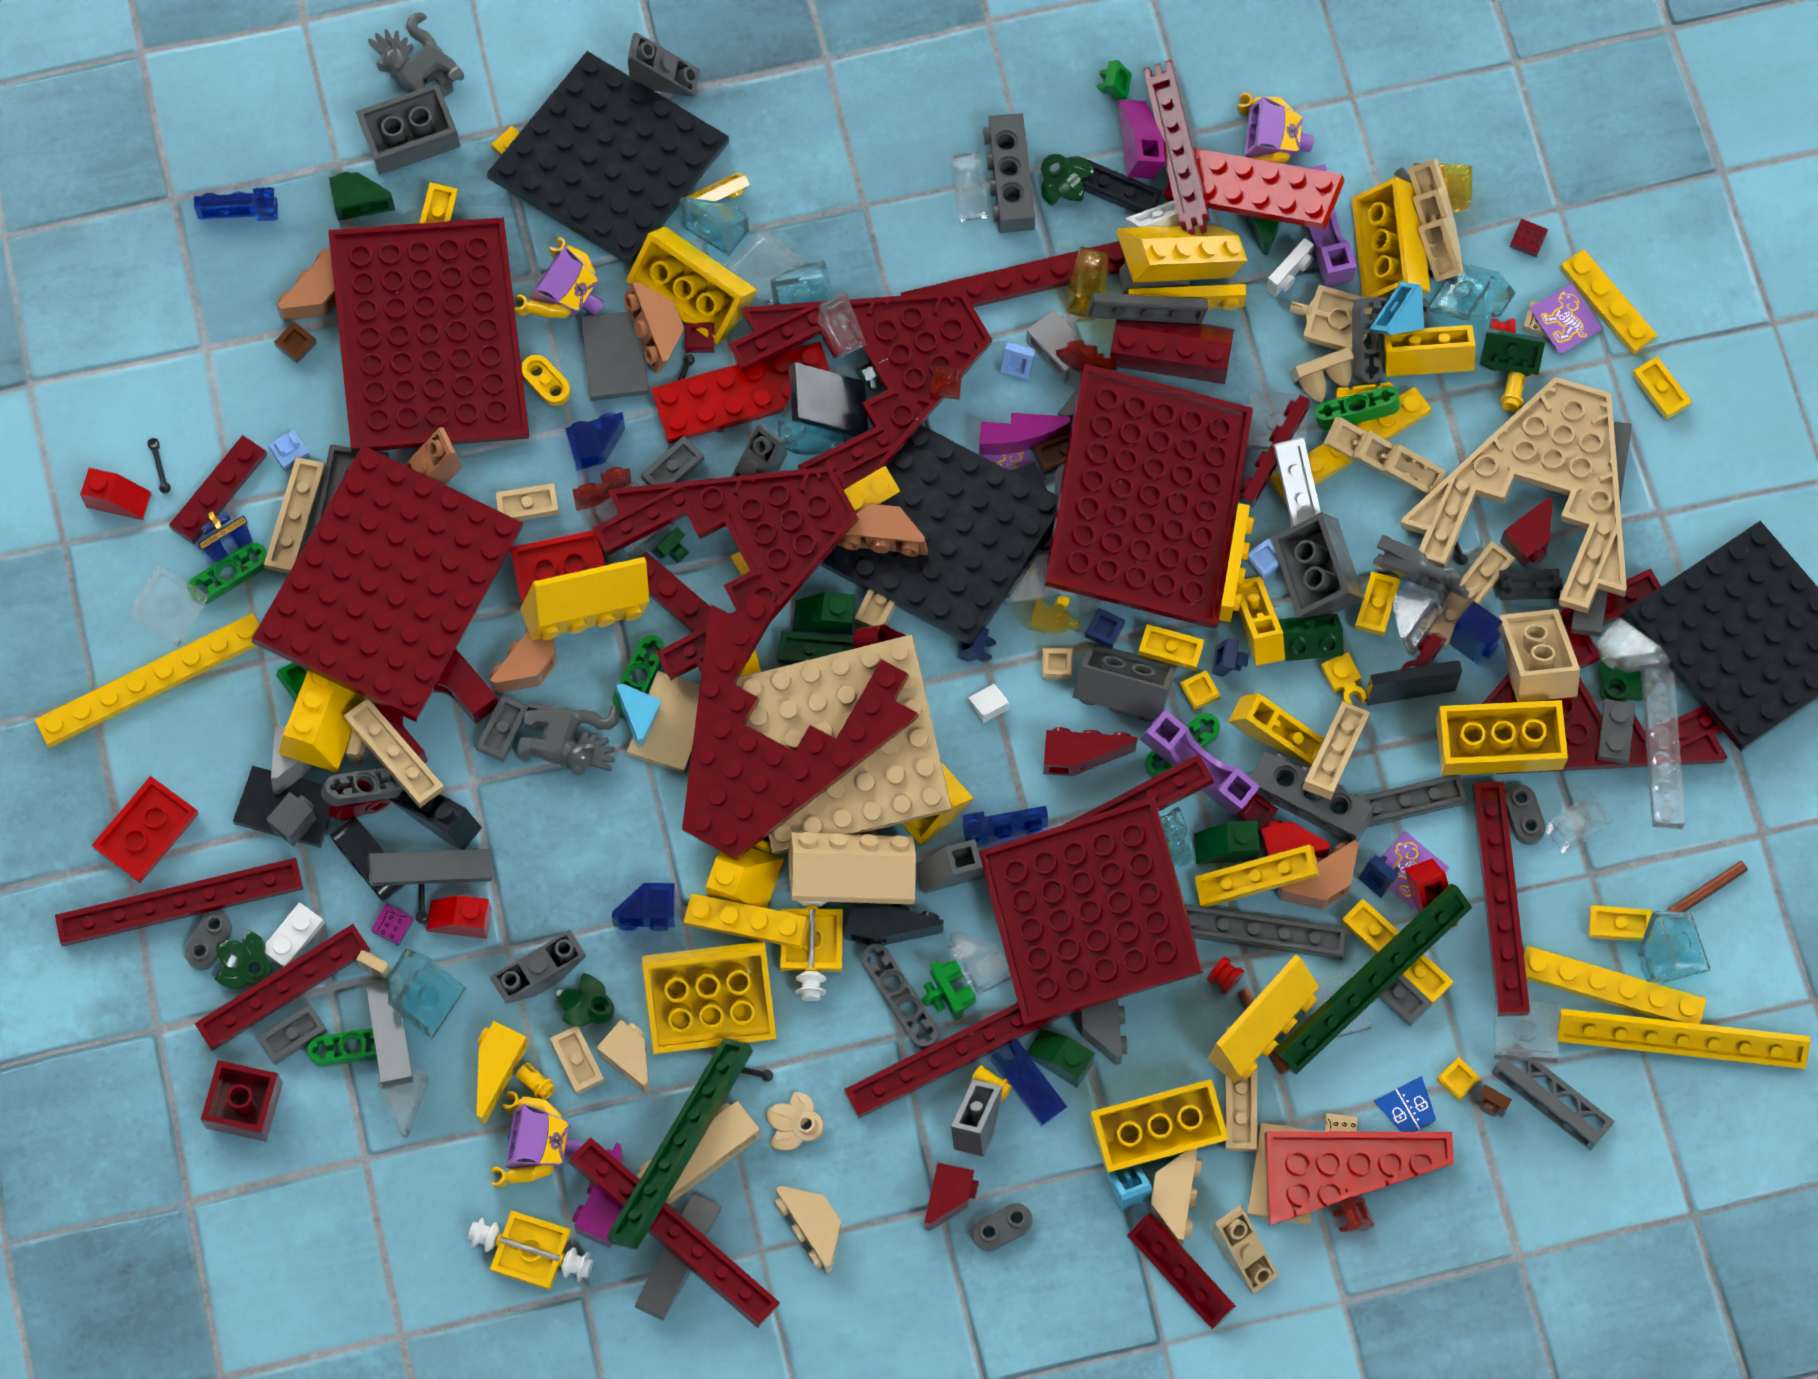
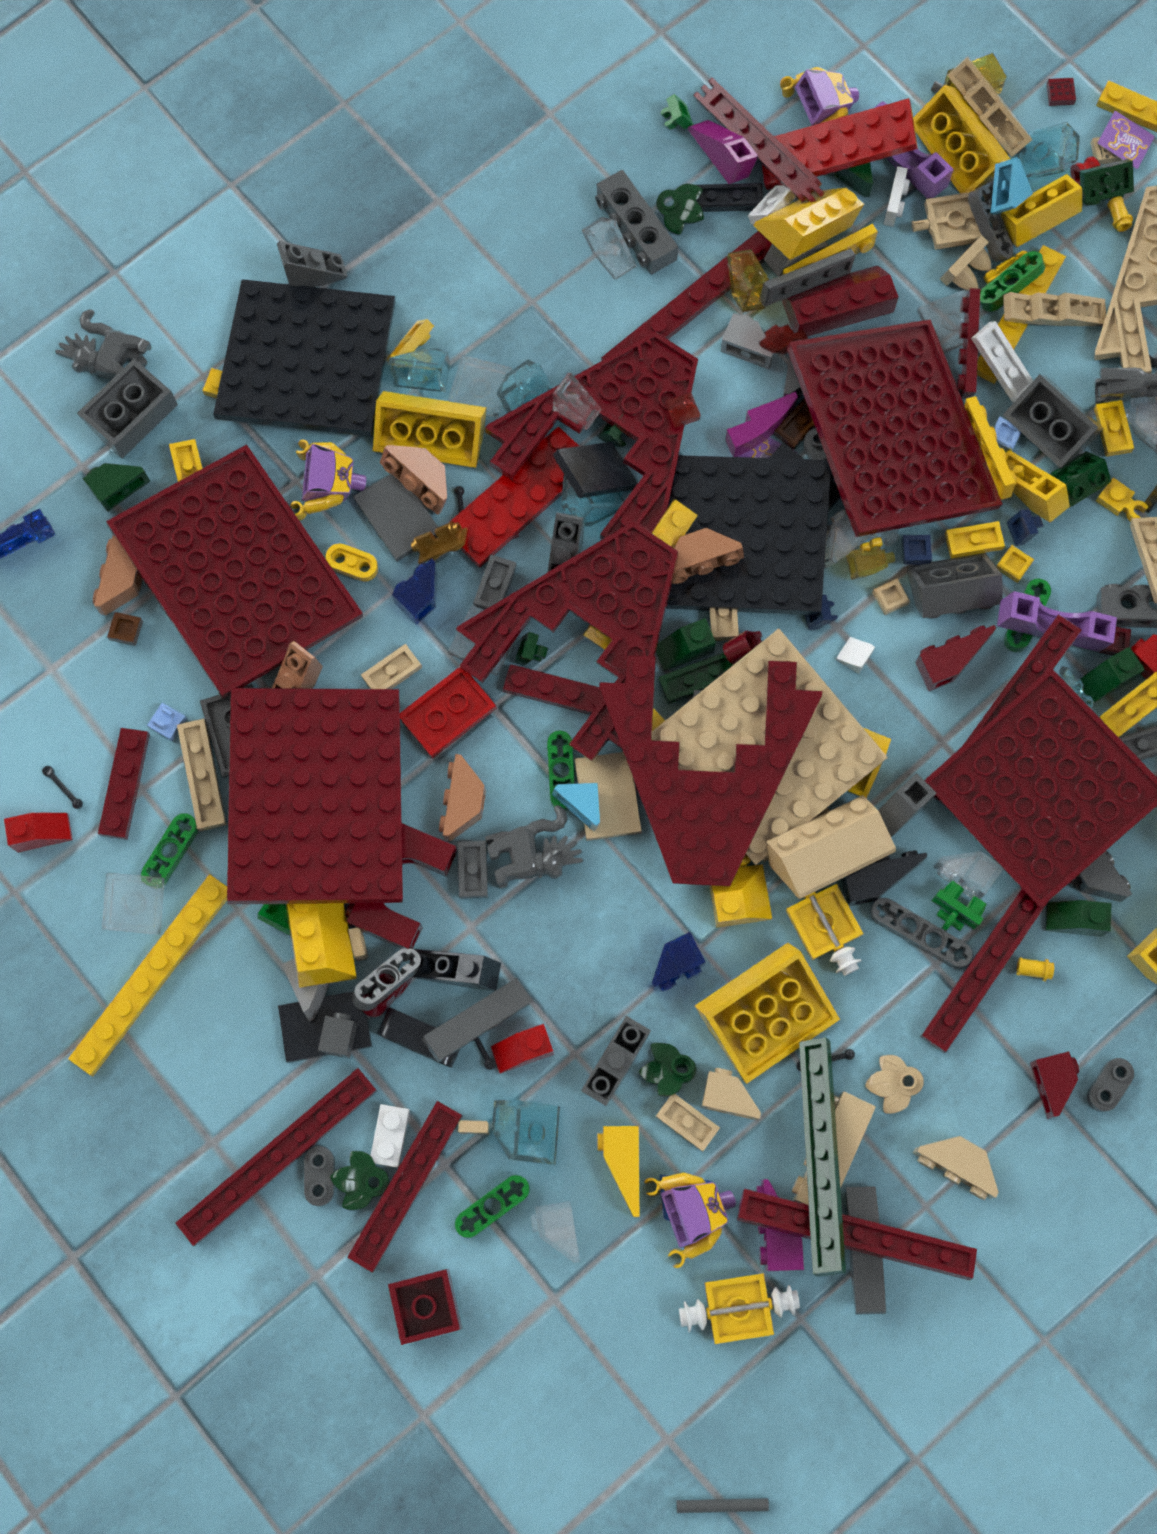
camera: 25 degrees left, 5 degrees up
(145, 829) = (214, 1107): red plate -> none
(213, 544) = (145, 833): clear blue hips -> none
(292, 1034) = (435, 1223): dark grey plate -> none
(388, 1037) = (522, 1185): tile -> none
(392, 924) = (469, 1083): magenta tile -> none
(393, 753) = (397, 938): tan plate -> none
(536, 1082) = (663, 1158): yellow pin -> none
(586, 599) = (489, 729): yellow slope -> none
(591, 495) = (451, 619): clear red slope -> none
(649, 401) = (450, 538): none -> pearl gold hinge
(697, 342) = (458, 473): dark red tile -> none
(746, 920) = (763, 933): yellow plate -> none
(976, 1118) = (1043, 1004): dark grey slope -> none
(1003, 825) = (909, 759): clear blue plate -> none
(1017, 361) = (725, 368): light blue tile -> none
(1029, 1083) = (1065, 953): clear blue plate -> none
(1275, 728) = (1094, 565): yellow slope -> none

